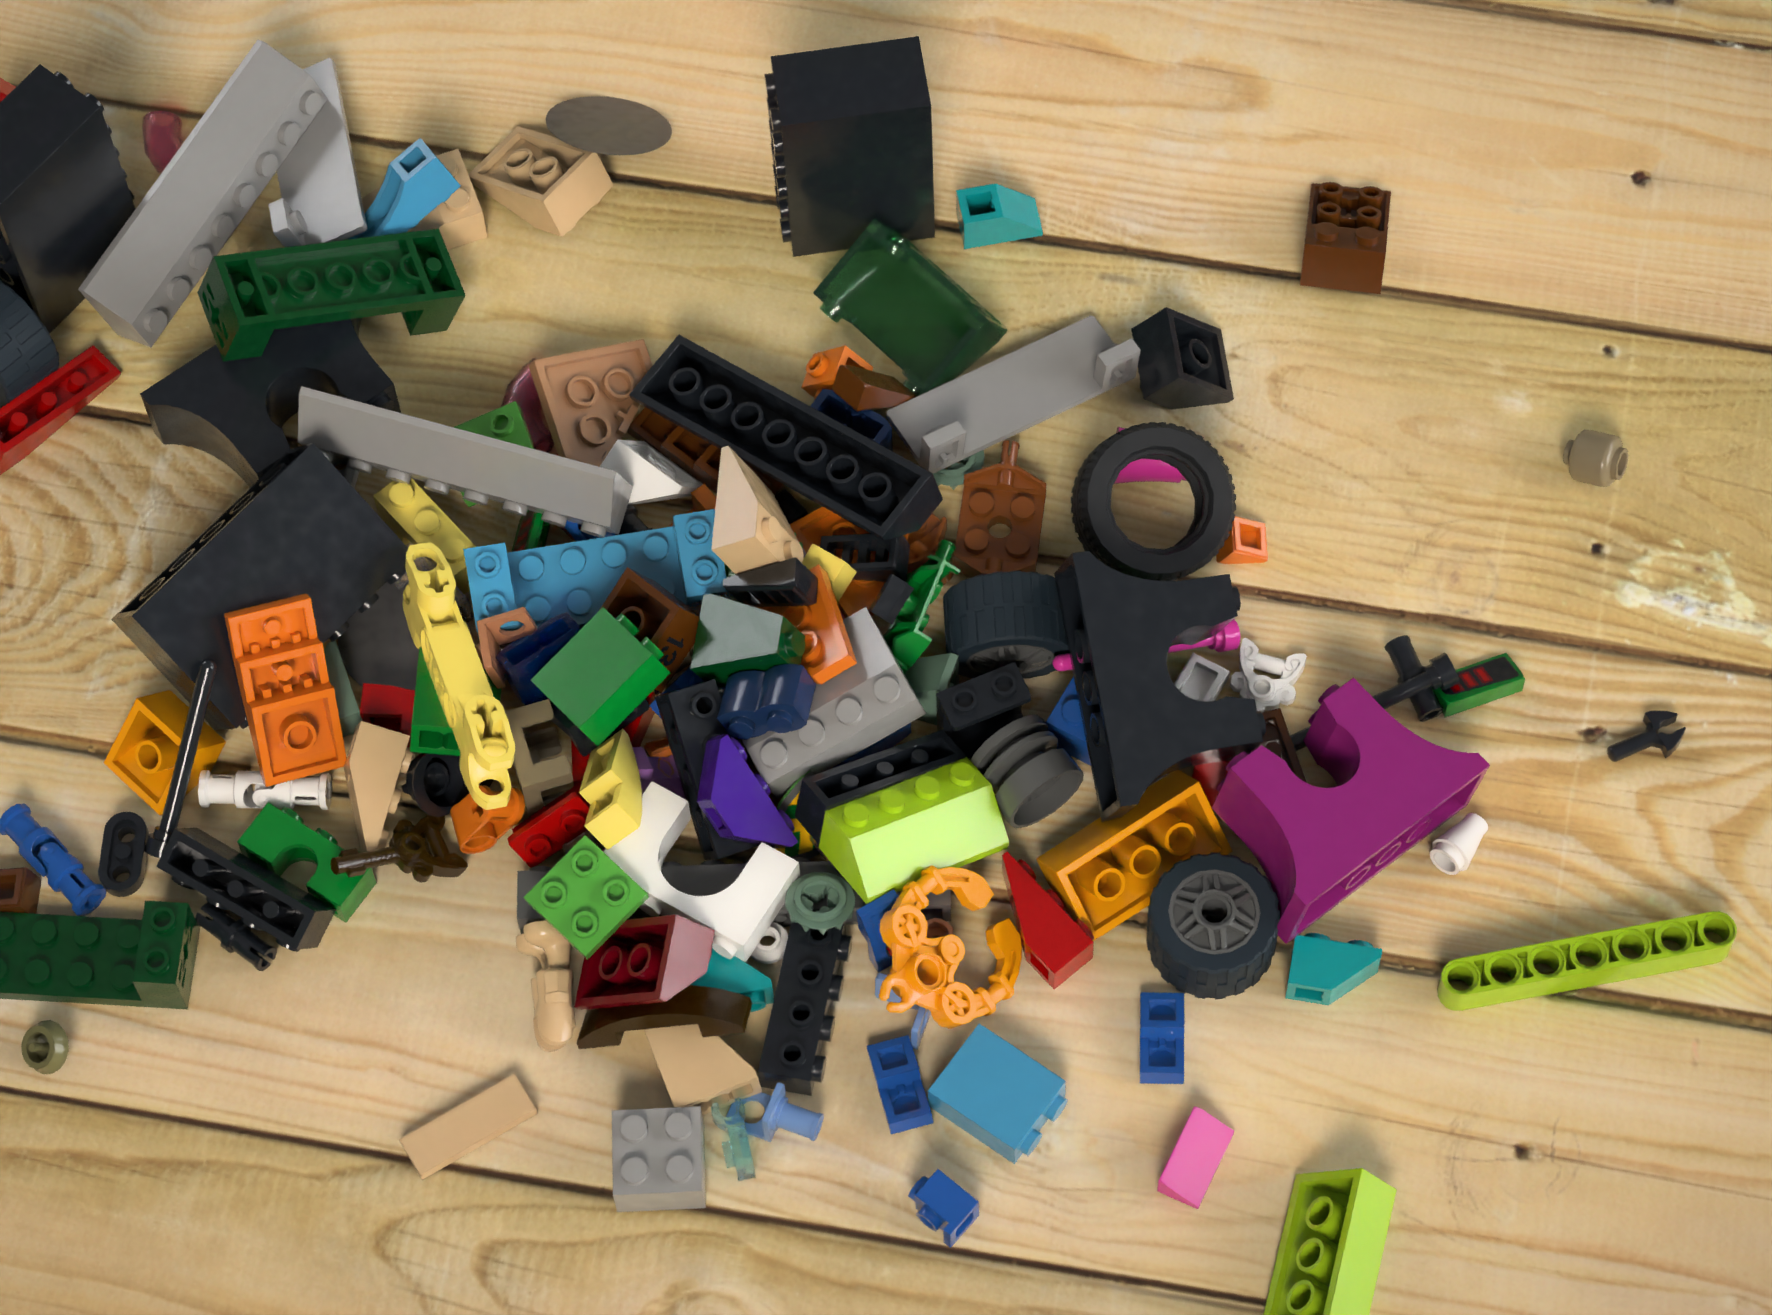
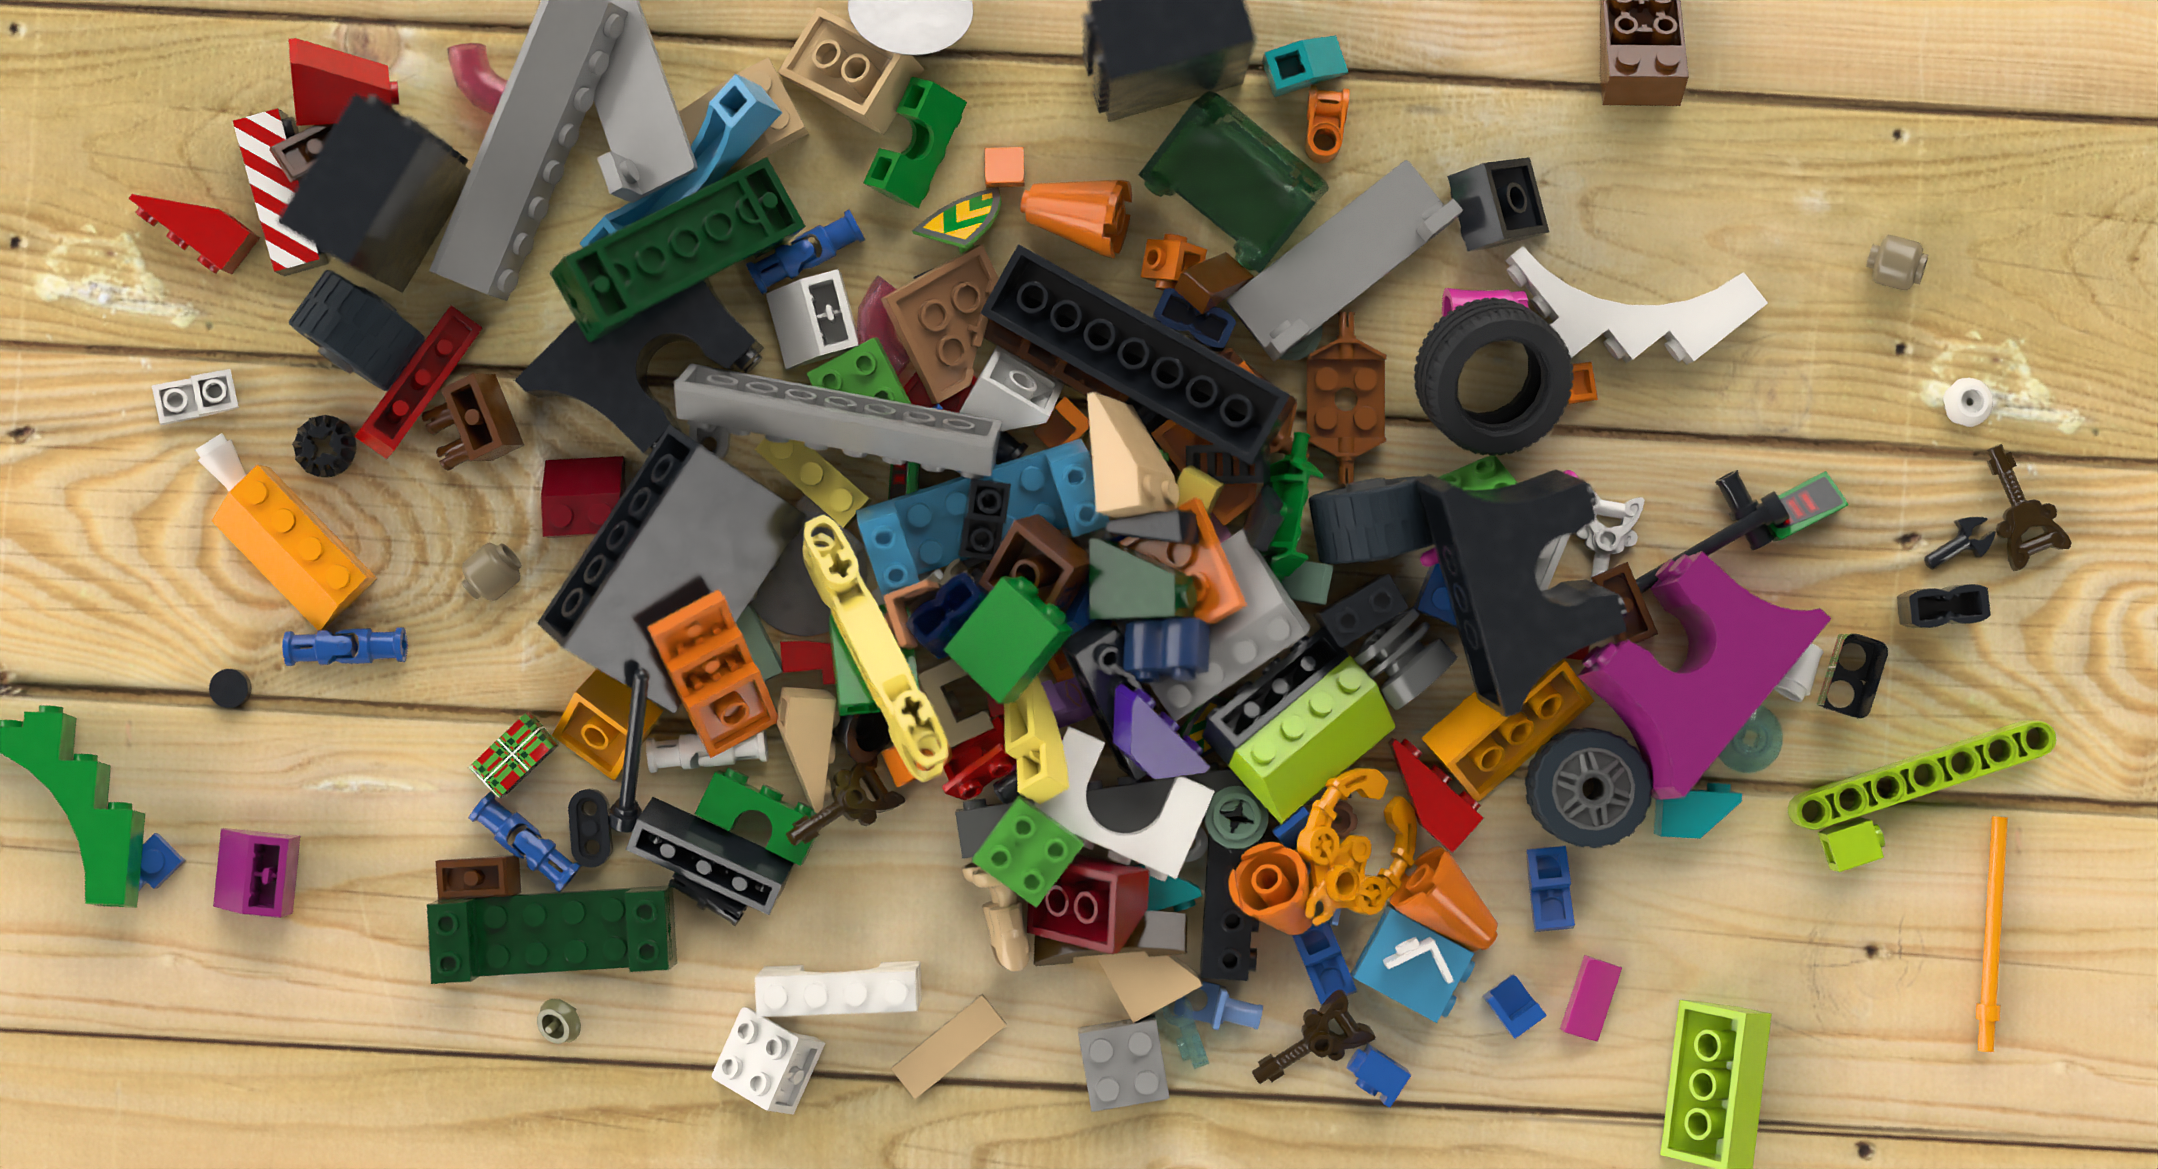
camera: 10 degrees left, 25 degrees up
(58, 769) = (514, 755): none -> piece
(76, 591) = (491, 571): none -> dark tan head
(100, 447) = (480, 417): none -> reddish brown brick
(171, 528) = (580, 494): none -> dark red slope
(267, 1116) = (767, 1062): none -> white bracket
(411, 1028) = (875, 990): none -> white arch
(455, 336) = (791, 260): none -> blue piece
(458, 383) = (813, 319): none -> white slope
(597, 573) = (983, 518): none -> black slope
(614, 223) = (933, 118): none -> green arch
(623, 319) = (962, 220): none -> shield
(679, 284) = (1004, 167): none -> slope
(752, 322) = (1081, 212): none -> orange cone
(848, 977) = (1272, 887): none -> orange cone
(881, 1162) = (1319, 1038): none -> dark brown piece
(996, 1058) = (1412, 948): none -> white bracket
(1014, 269) = (1326, 116): none -> orange piece
(1043, 1027) = (1445, 901): none -> orange cone
(1106, 1156) = (1514, 1006): none -> blue panel
(1309, 491) = (1630, 329): none -> white arch
(1391, 925) = (1766, 745): none -> clear light blue piece
(1503, 1024) = (1852, 844): none -> lime brick
(1524, 816) = (1870, 672): none -> black piece
(1630, 788) = (1940, 606): none -> black brick
(1648, 1222) = (1988, 1010): none -> light orange bar
(1664, 613) = (1956, 405): none -> white plate
(1718, 715) = (2023, 515): none -> dark brown piece

